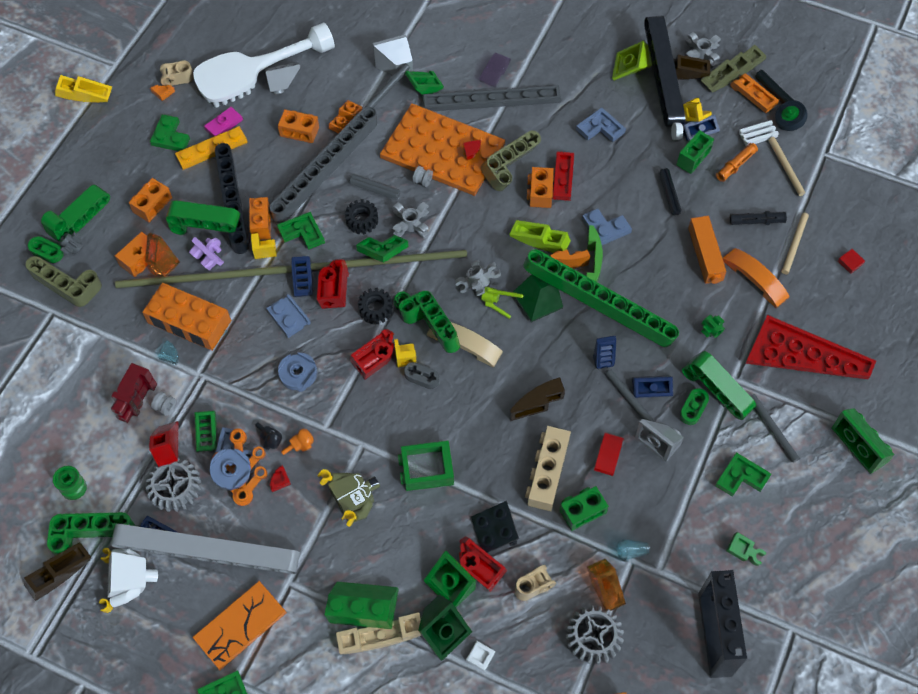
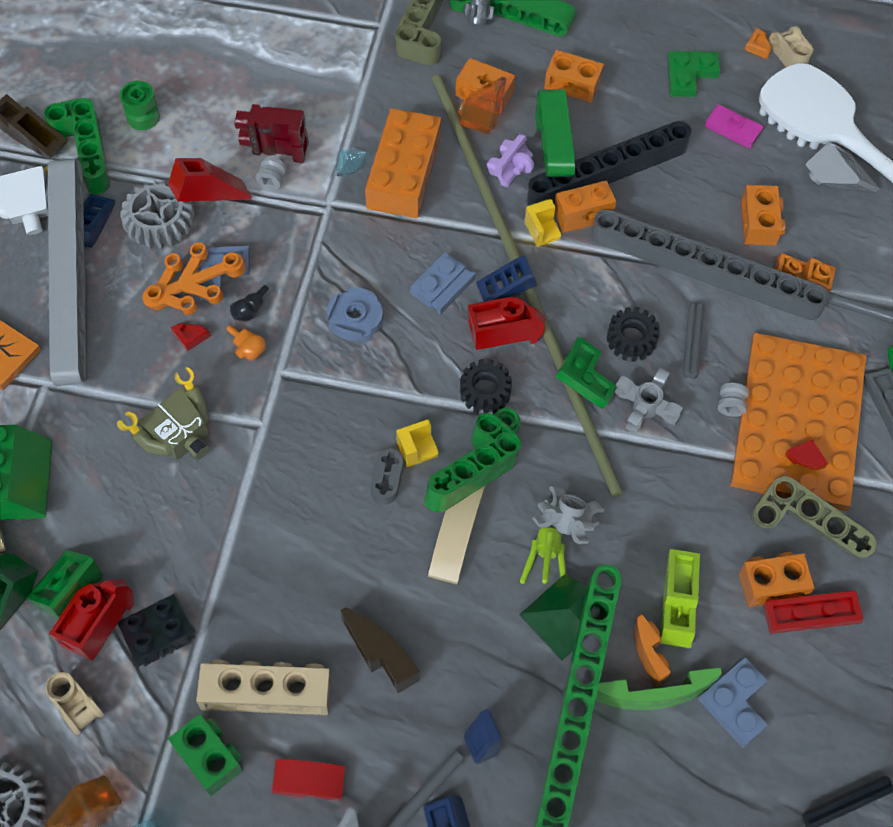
camera: 75 degrees right, 0 degrees up
(202, 416) = (250, 220): green slope -> none
(206, 149) = (703, 135): light orange plate -> none
(230, 457) = (187, 278): sand blue plate -> none
(302, 226) = (589, 266): green plate -> none
(367, 358) = (392, 395): red piece -> none
(424, 466) = (238, 513): green window -> none

